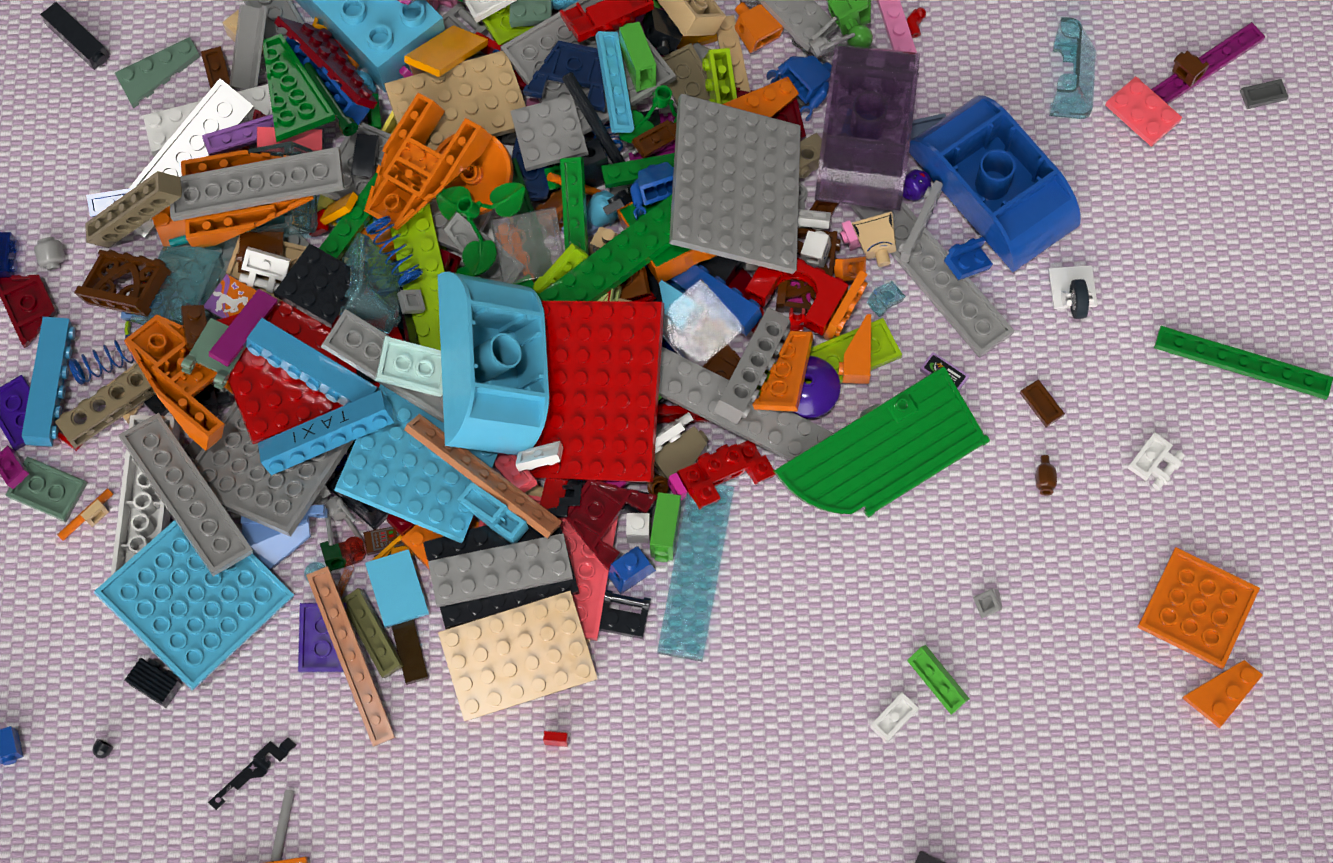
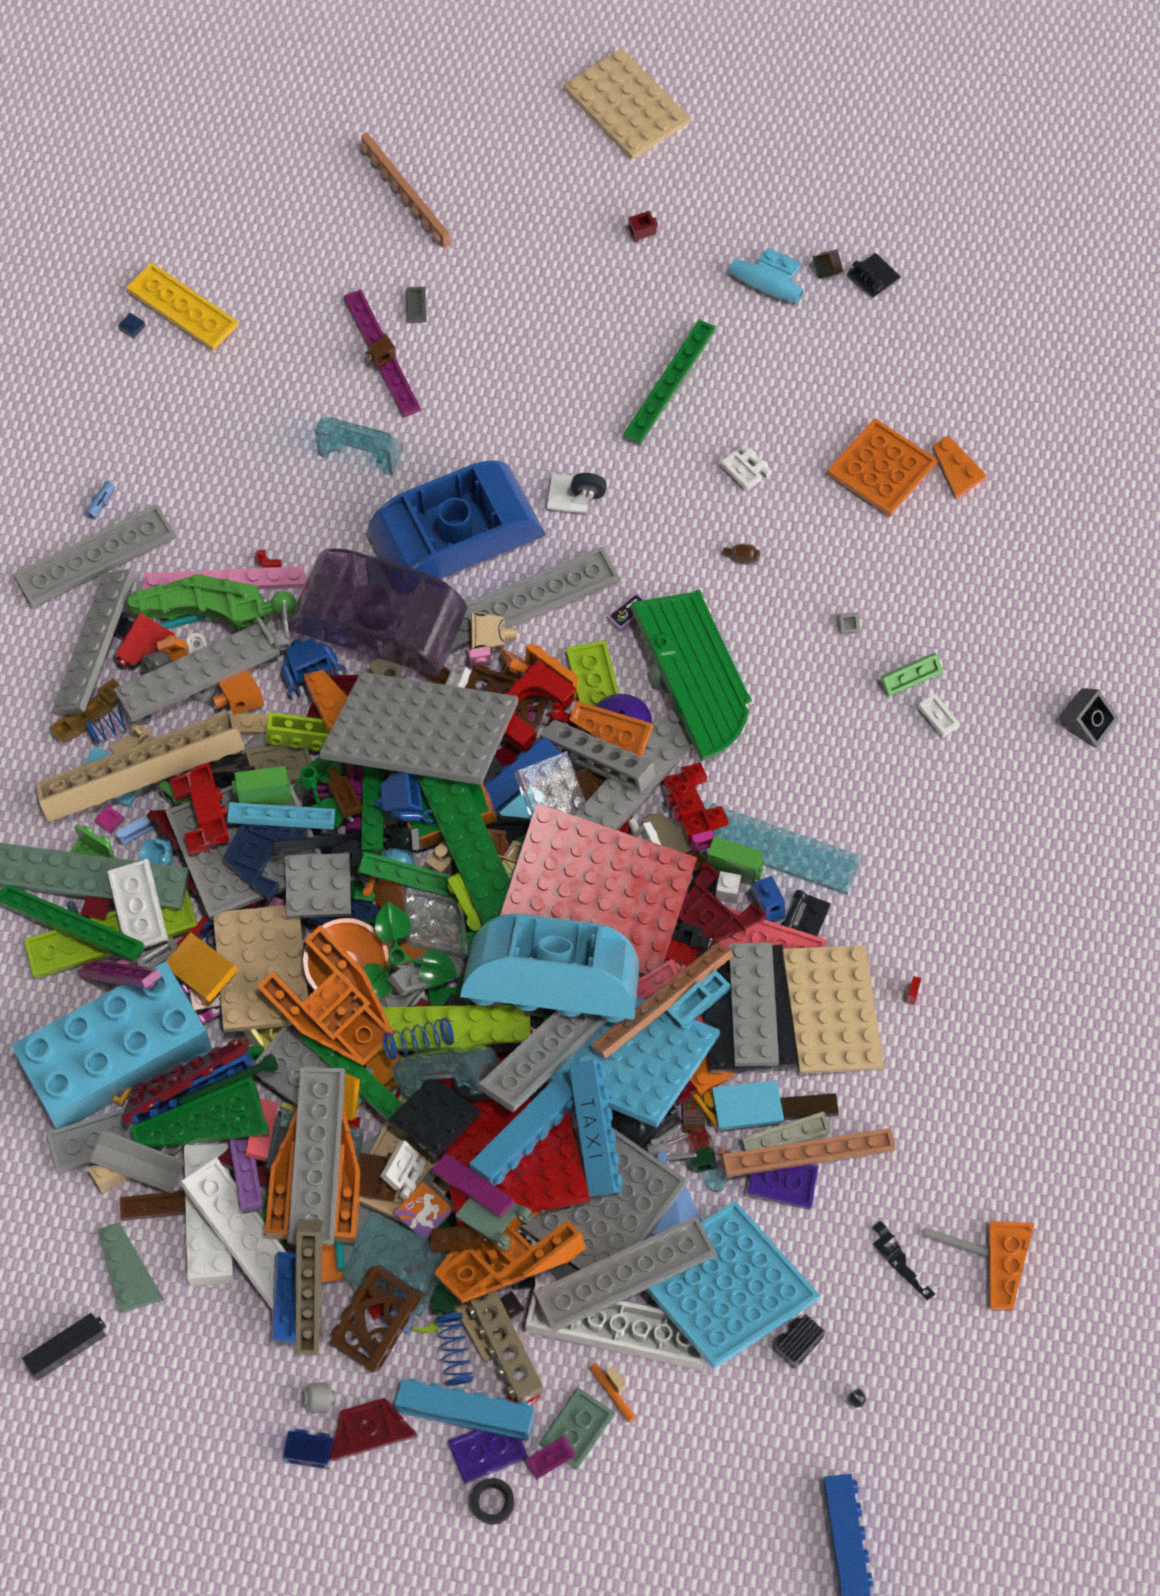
camera: 80 degrees left, 5 degrees down
(365, 155) = (292, 1059): black slope -> none
(410, 366) = (547, 1037): light aqua plate -> none
(411, 301) = (471, 1036): light grey plate -> none
(539, 456) = (649, 950): white plate -> none
(816, 248) = (489, 681): white brick -> none
(857, 358) = (604, 672): orange slope -> none
(884, 298) = (547, 640): clear light blue bracket -> none
(931, 195) = (481, 593): light grey plate -> none
(968, 258) = (525, 567): blue bracket -> none
(1042, 403) = (673, 542): reddish brown tile -> none
(1143, 111) = (412, 398): coral plate -> none

